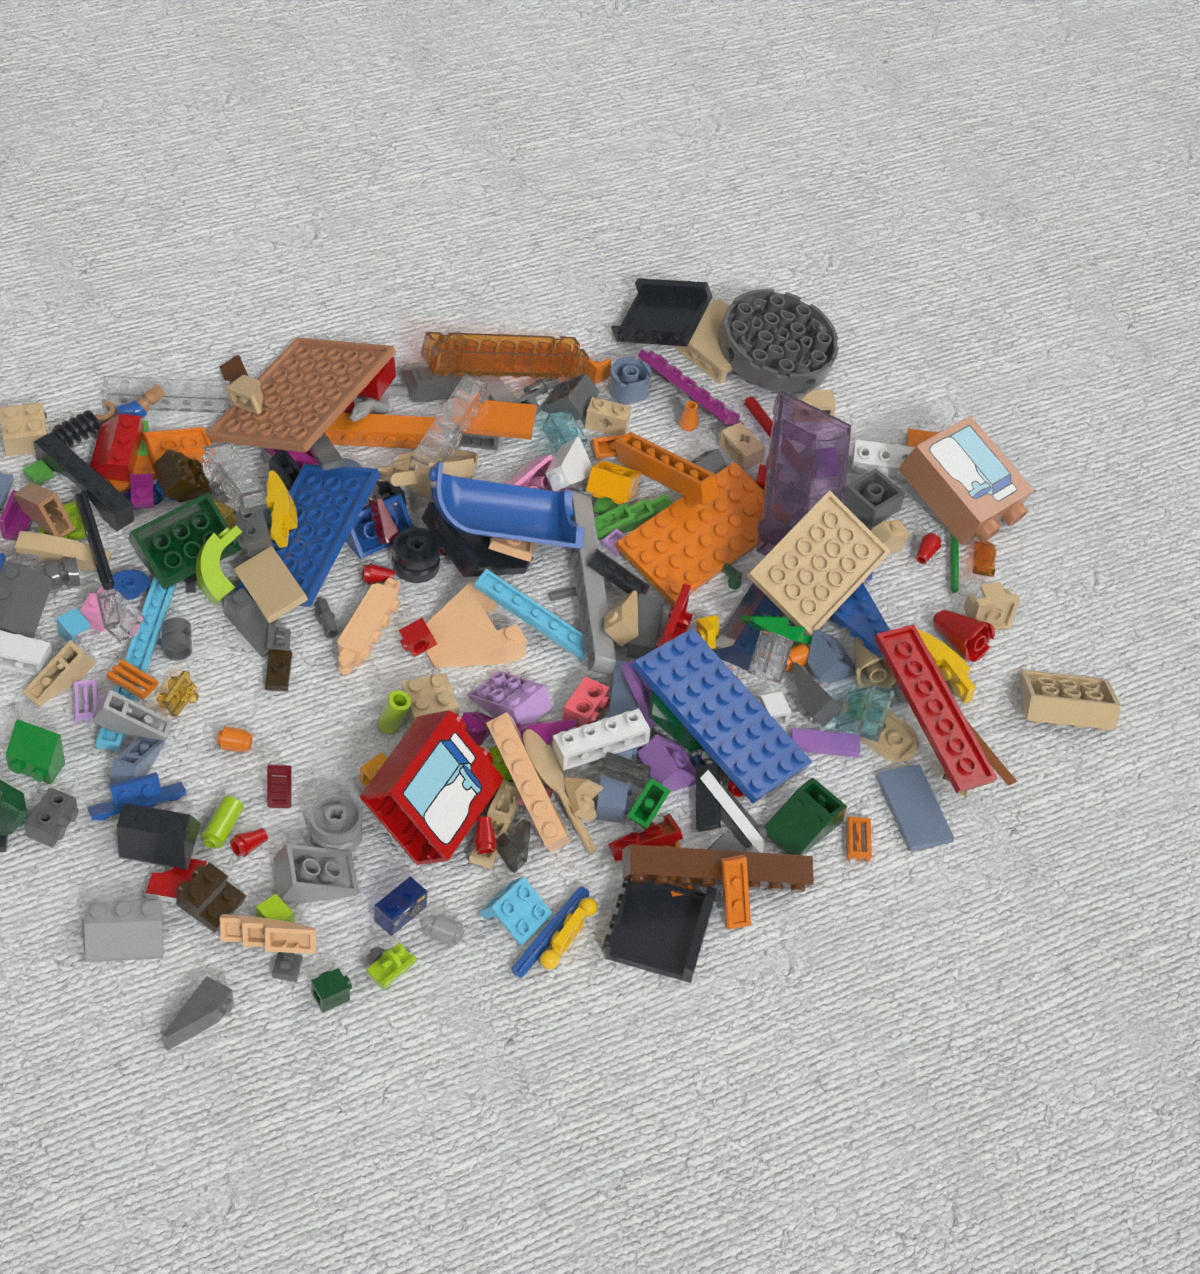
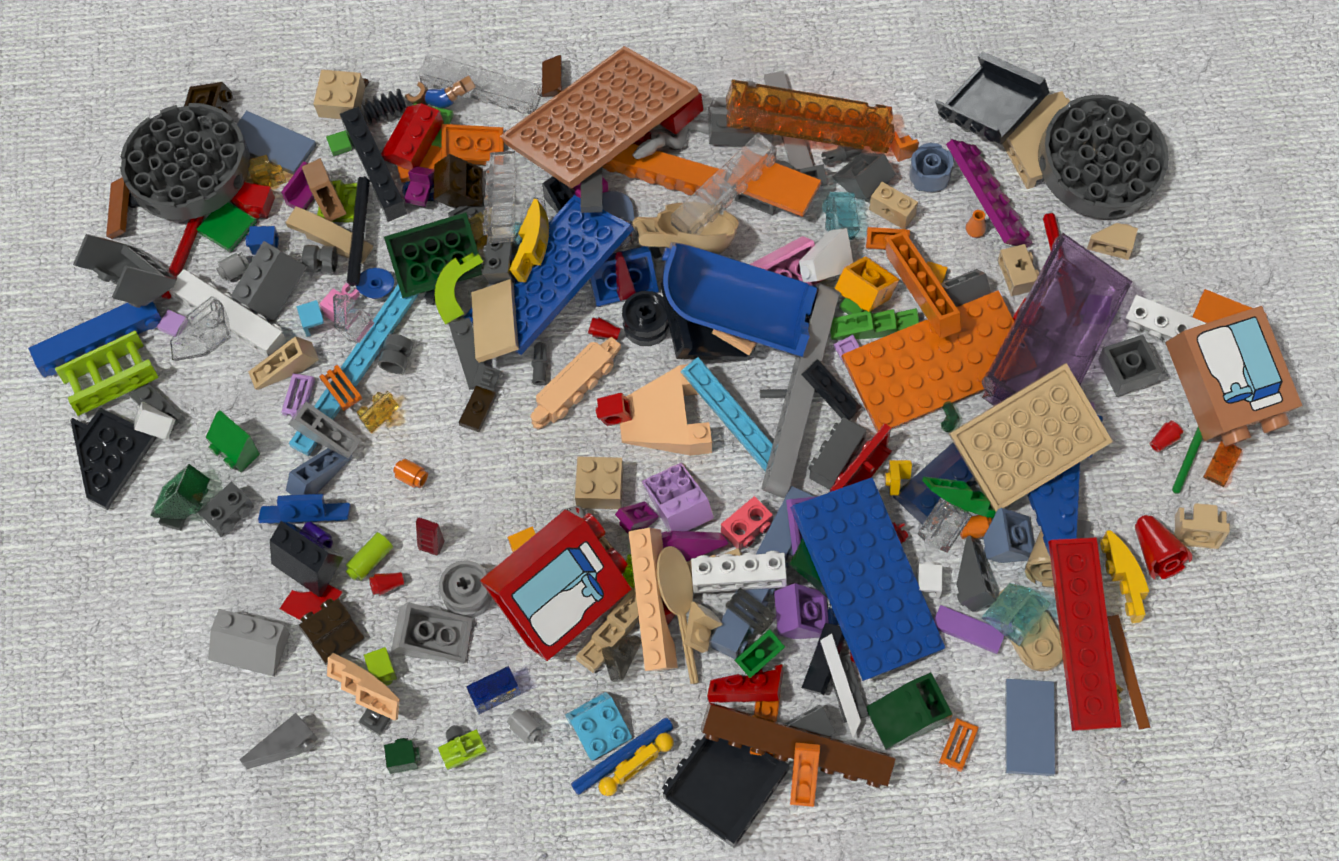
camera: 30 degrees right, 15 degrees up
(246, 394) = (549, 103): tan slope -> none
(394, 712) = (559, 487): lime brick -> none
(485, 837) = (593, 642): red cone -> none
(622, 619) = (812, 443): tan slope -> none
(892, 535) = (1124, 415): tan slope -> none
(1069, 700) = (1243, 652): tan slope -> none

